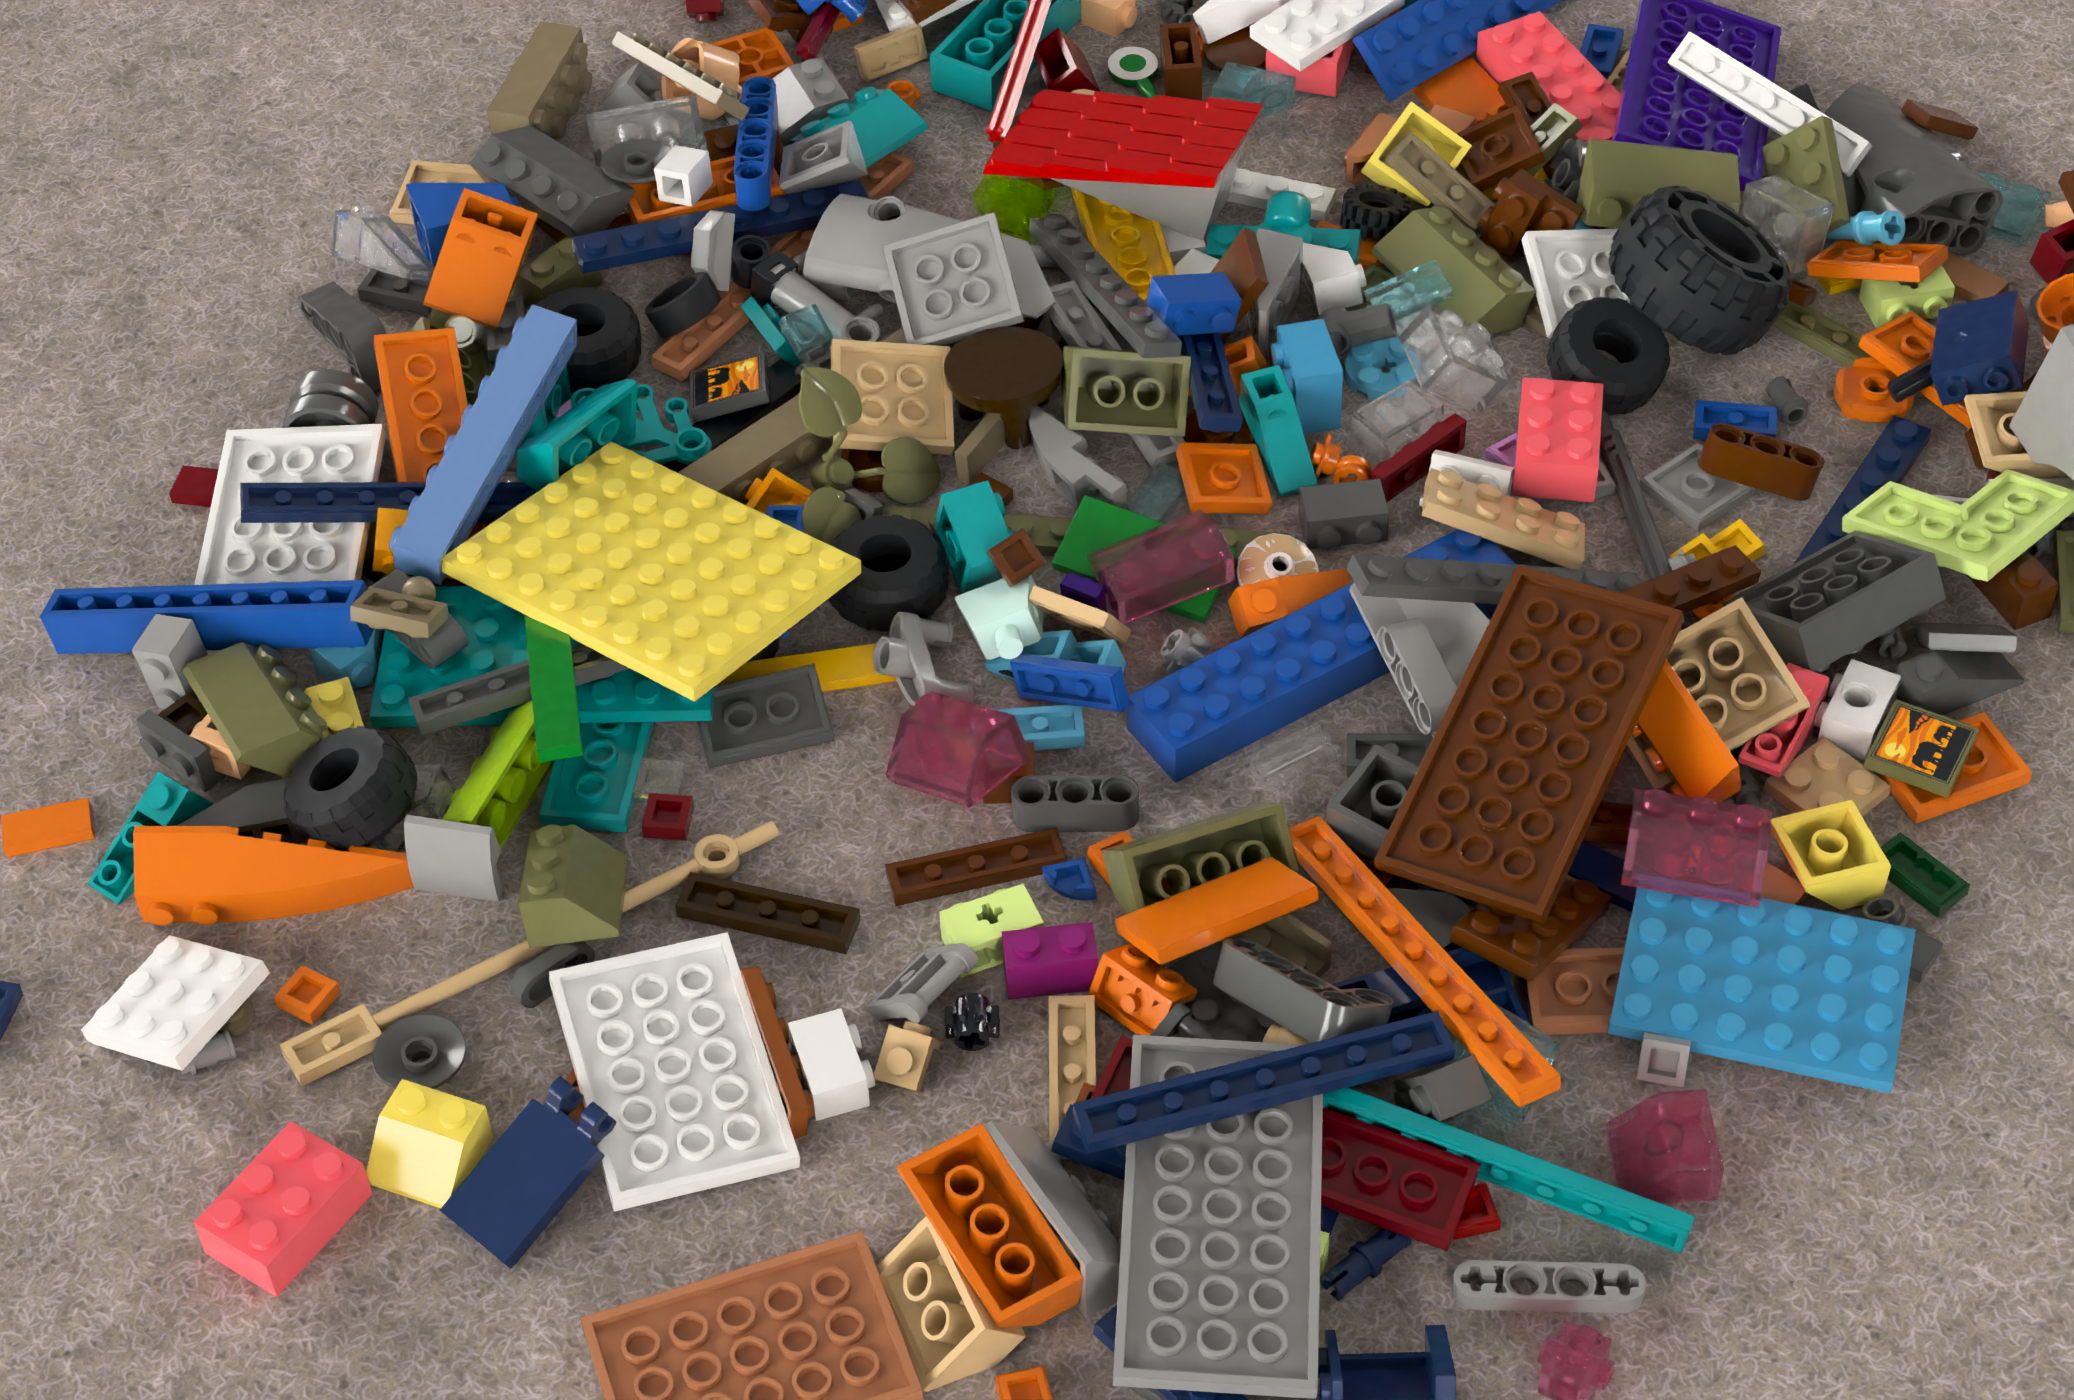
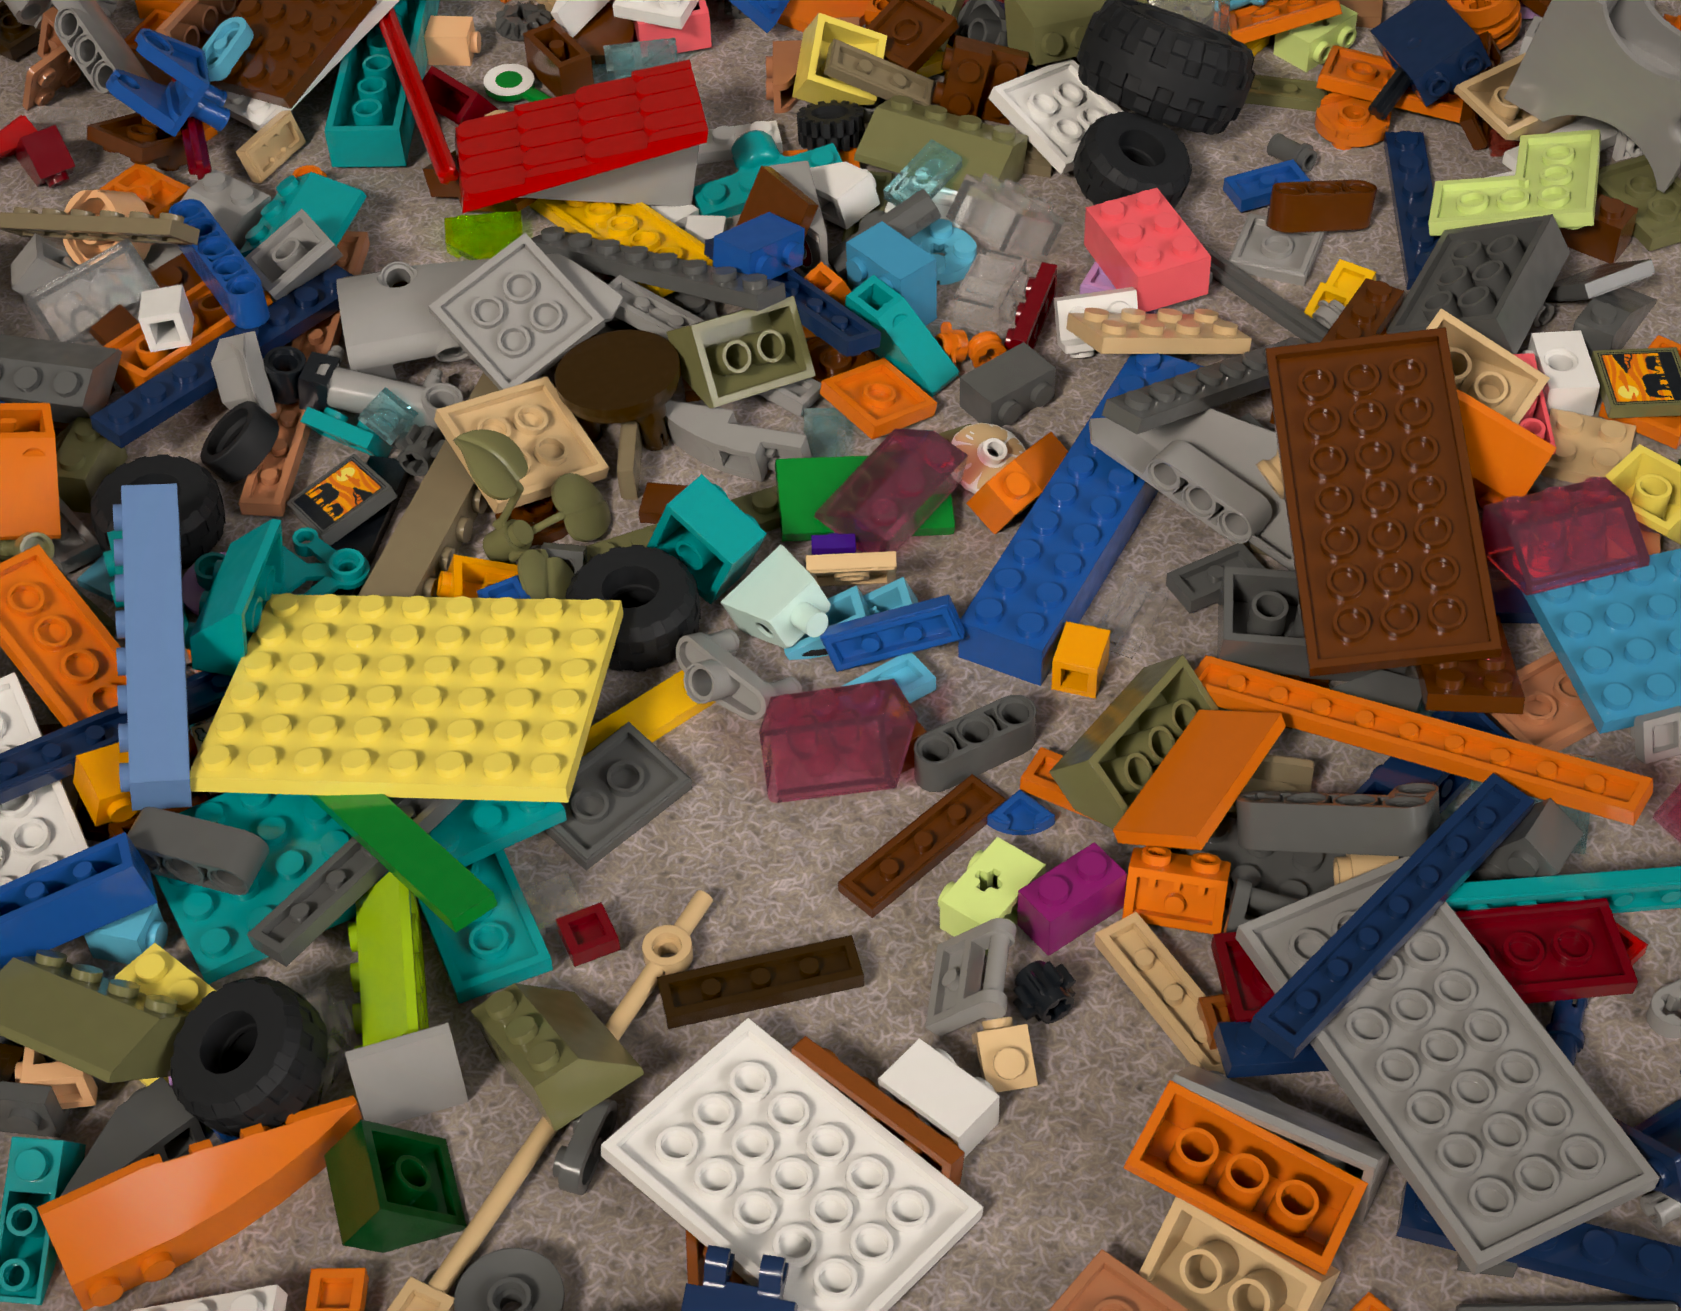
camera: 30 degrees left, 0 degrees up
(397, 935) = (392, 1187): none -> dark green slope
(408, 612) = (190, 843): dark tan plate -> none
(633, 160) = (104, 322): dark grey dish -> none
(1016, 557) = (770, 537): reddish brown tile -> none
(1183, 649) = (968, 563): light grey gear -> none
(1216, 773) = (1080, 659): none -> light orange brick

